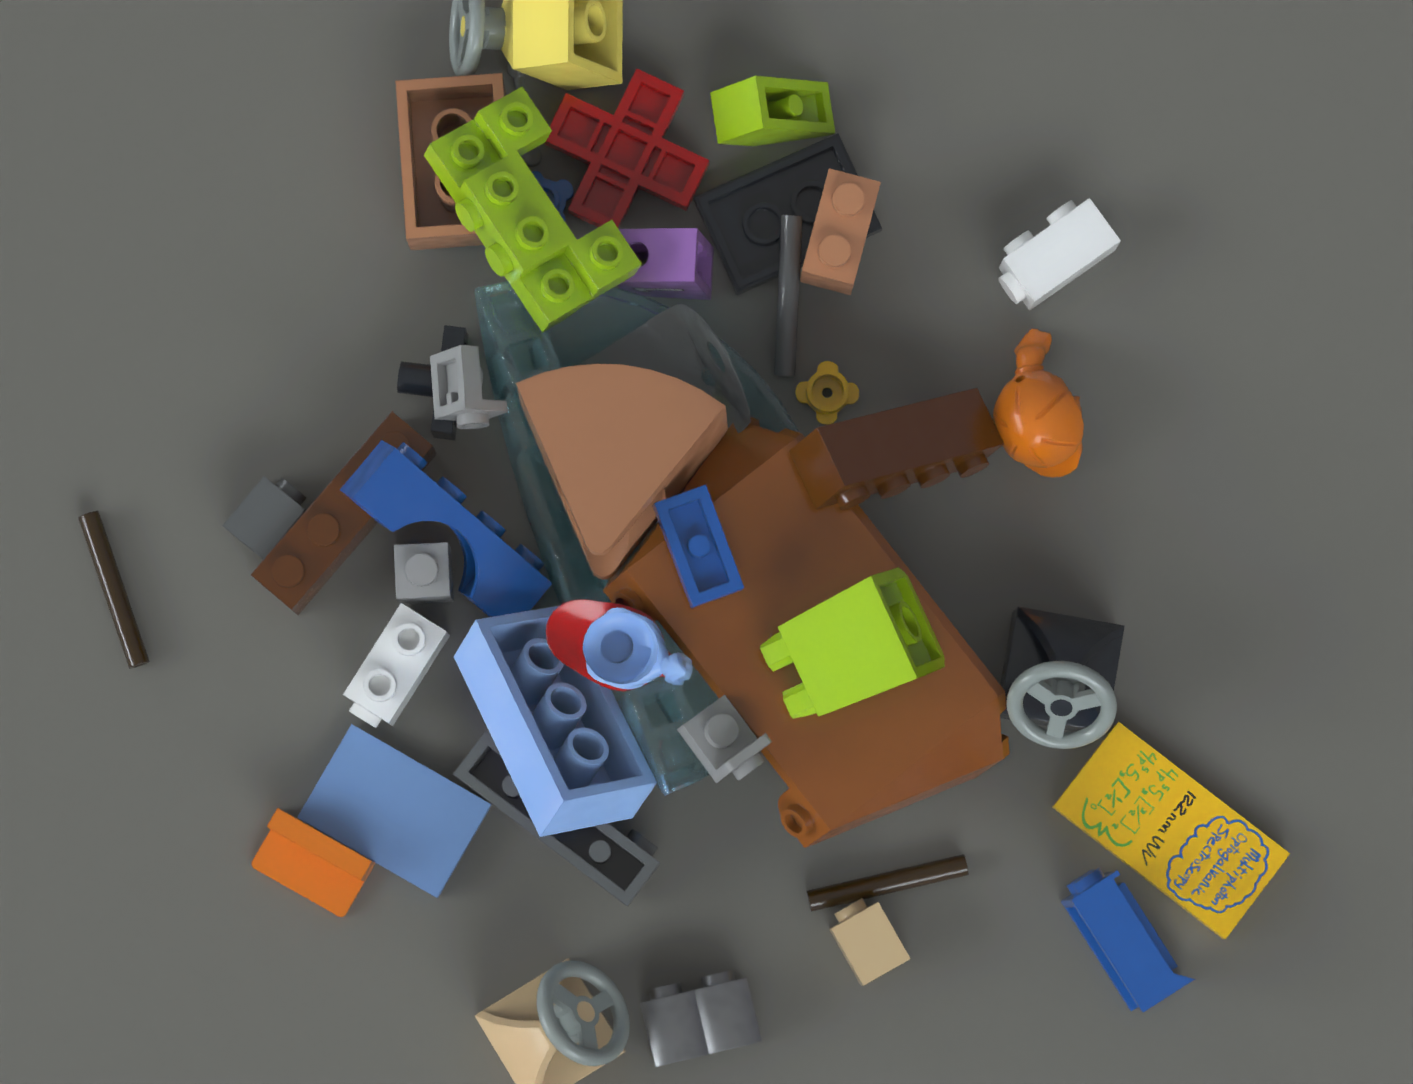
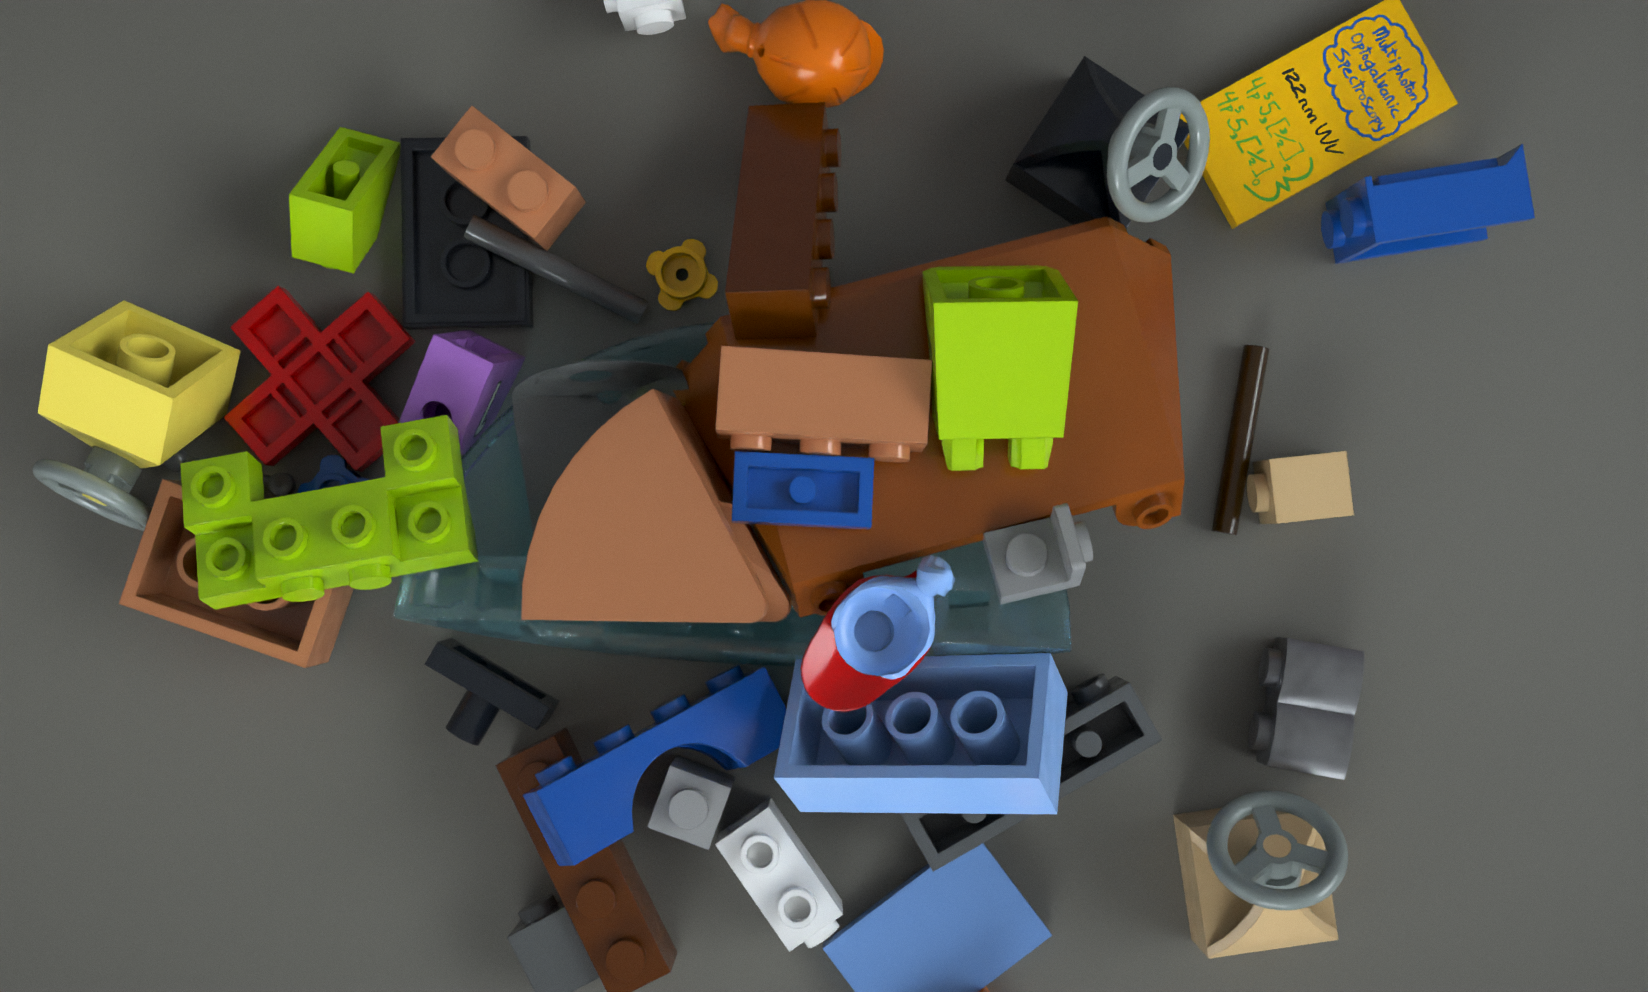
camera: 60 degrees left, 5 degrees up
(458, 389) = (499, 681): light grey bracket -> none
(768, 533) = (823, 402): none -> nougat brick

